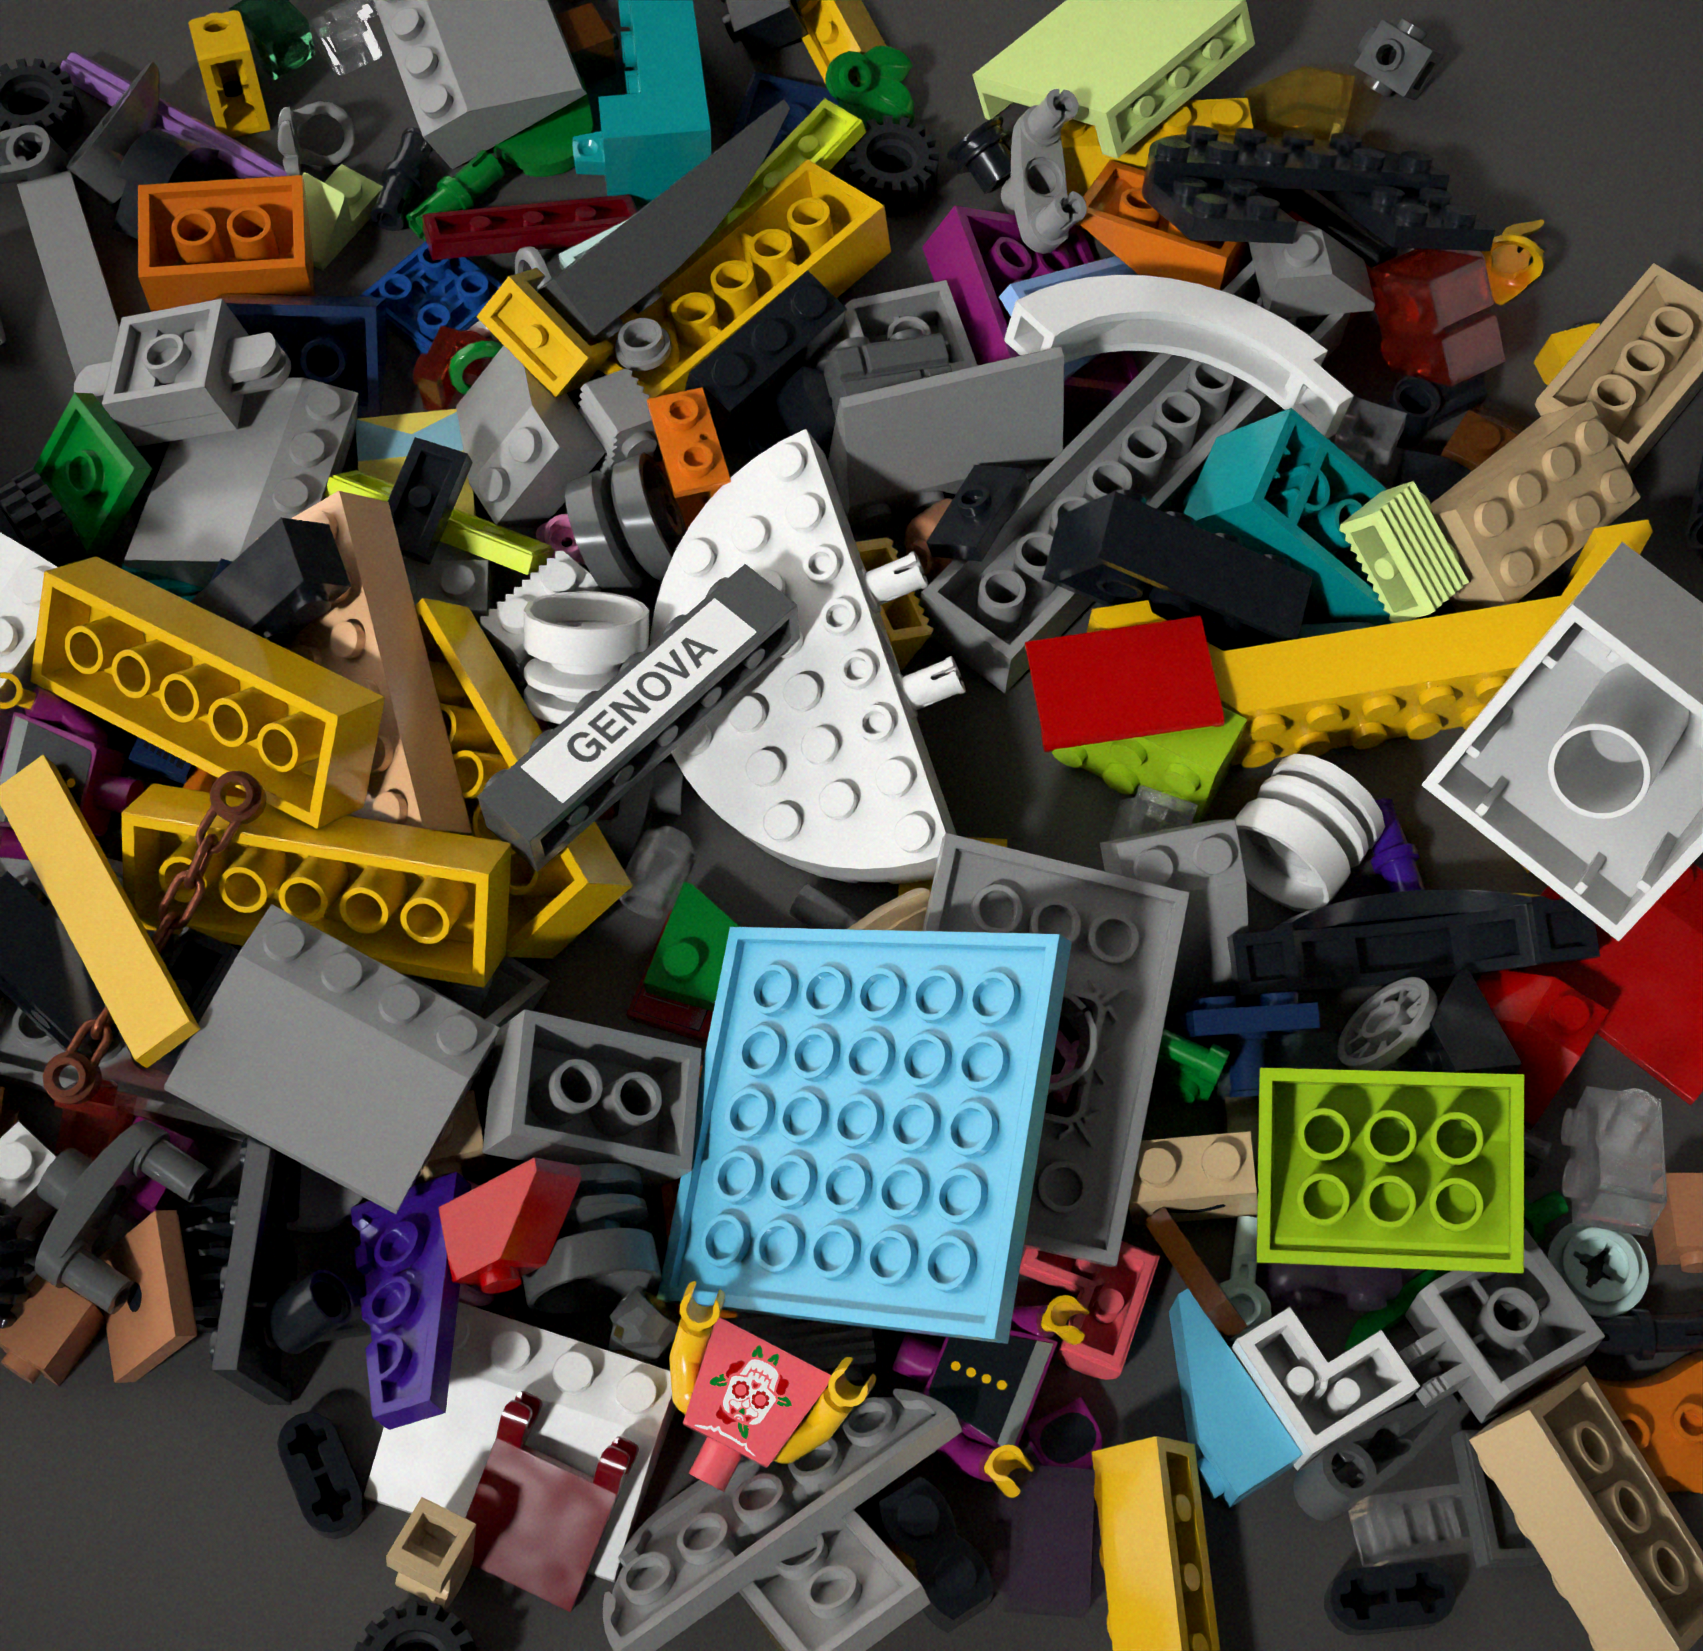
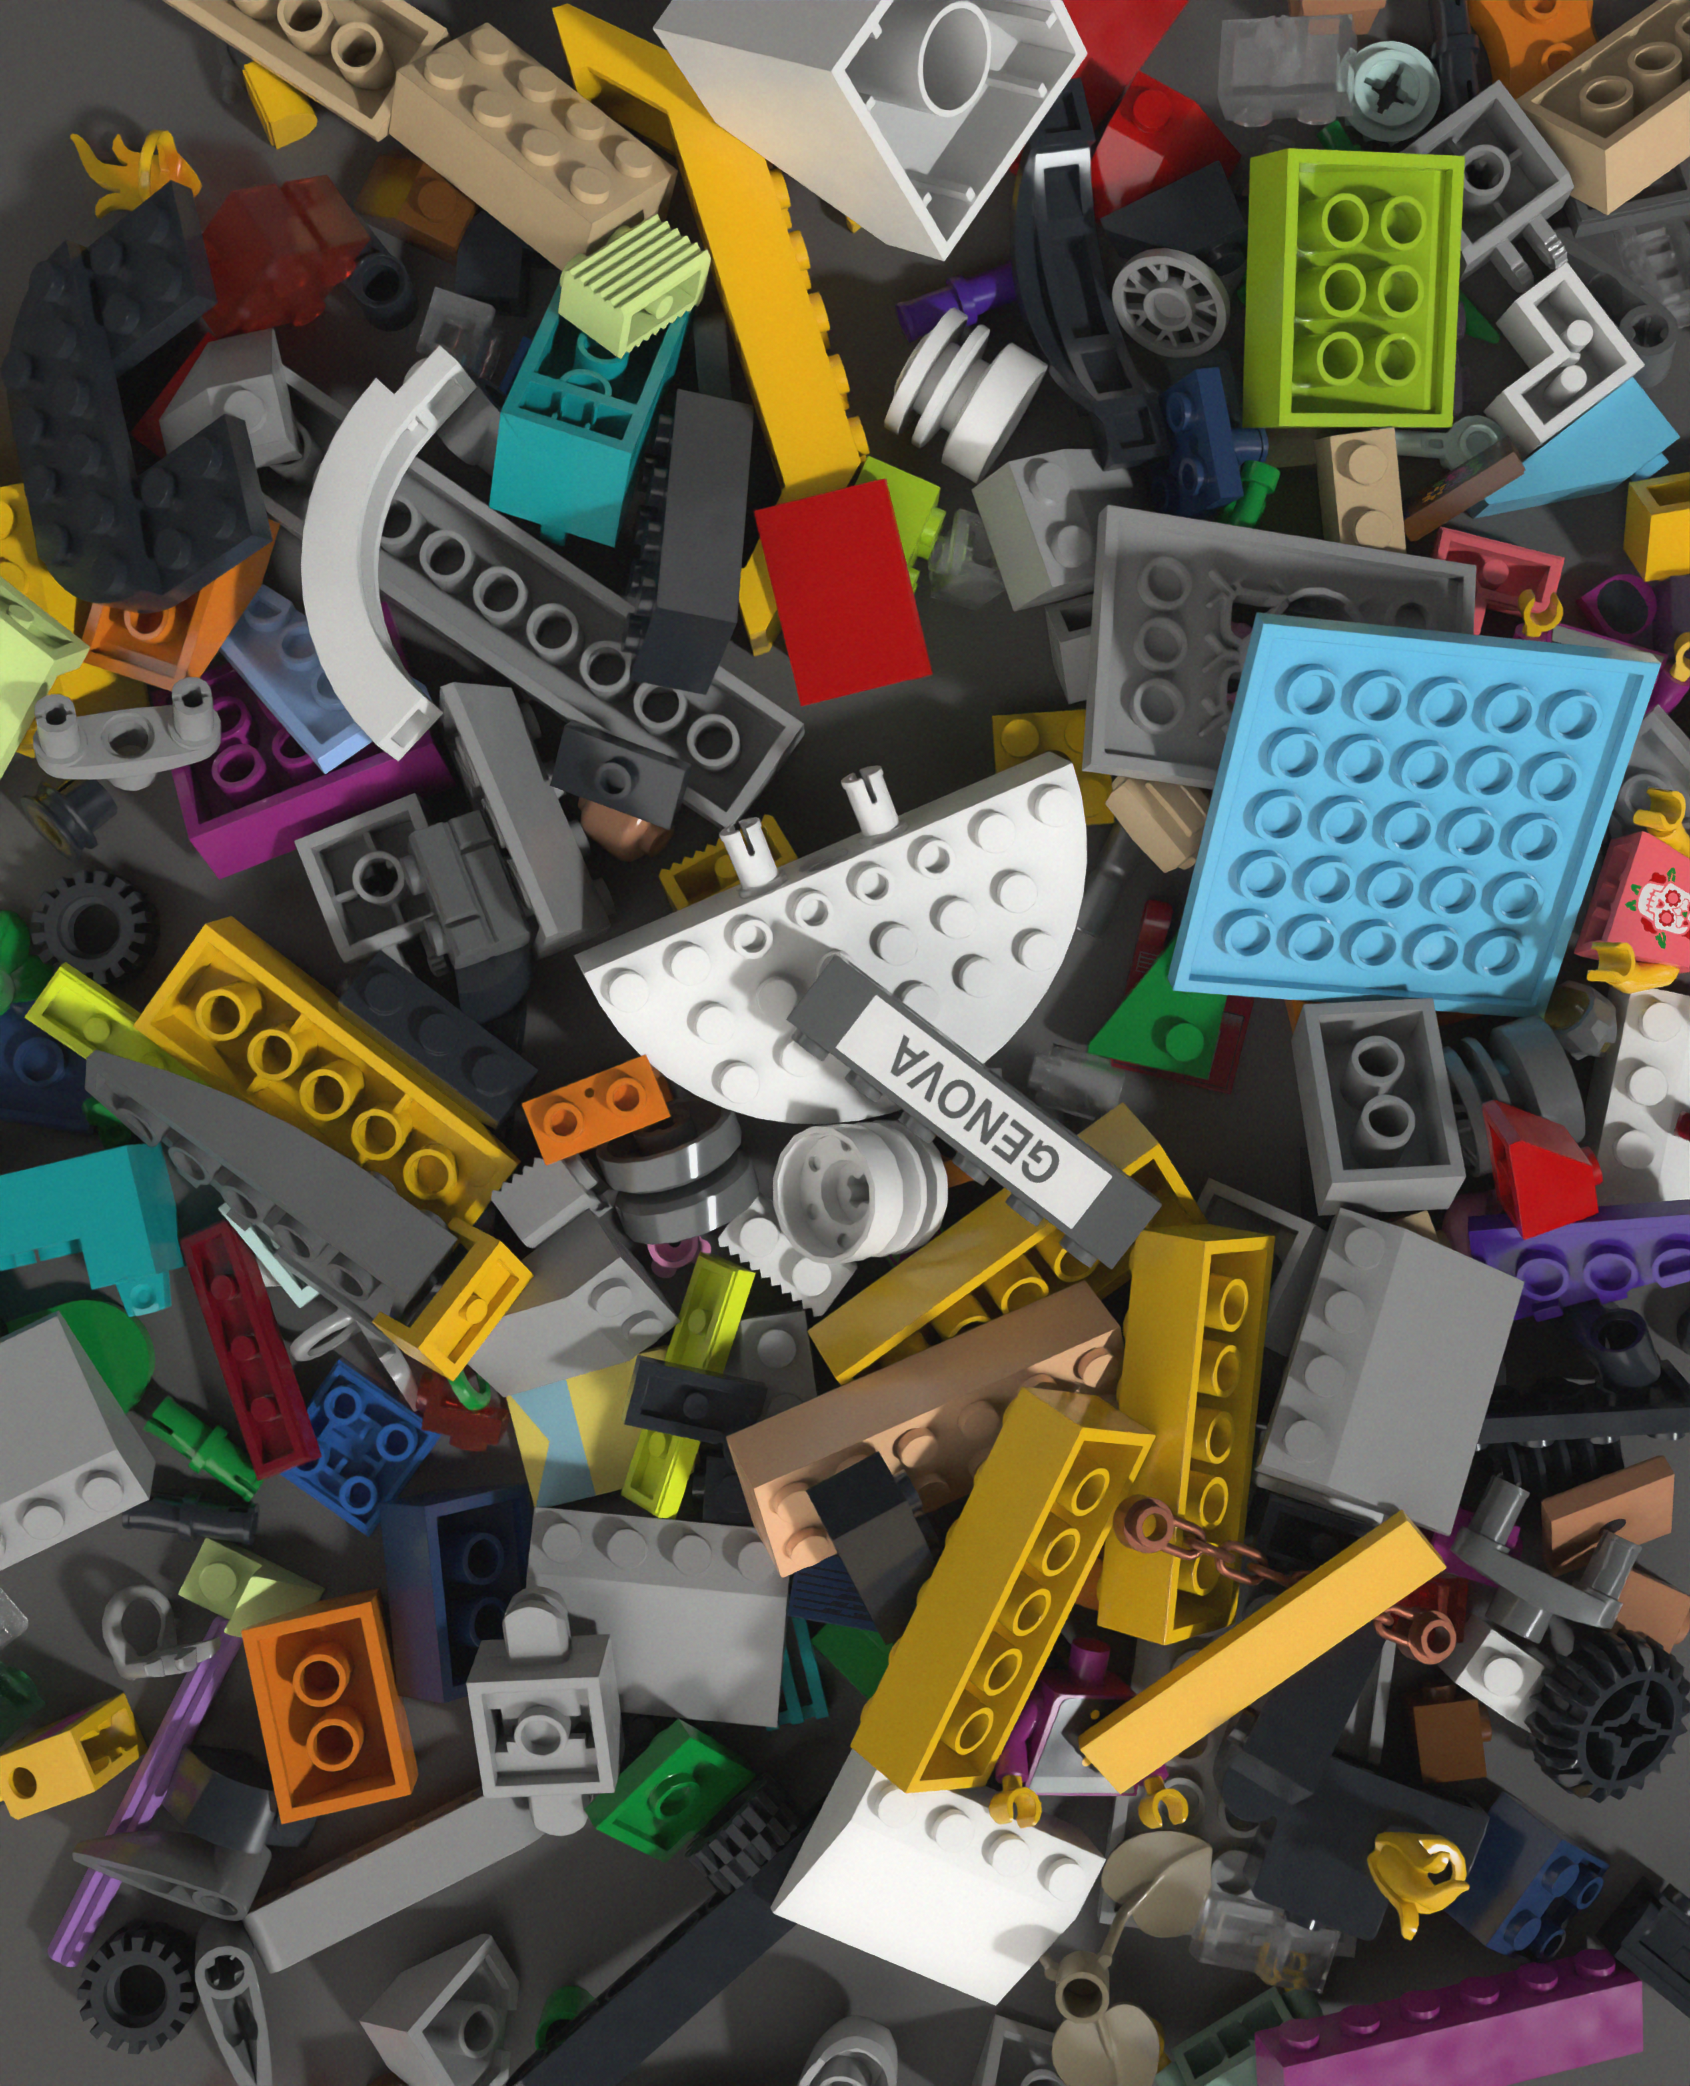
camera: 90 degrees left, 25 degrees up
(642, 345) = (433, 1193): light grey plate -> none

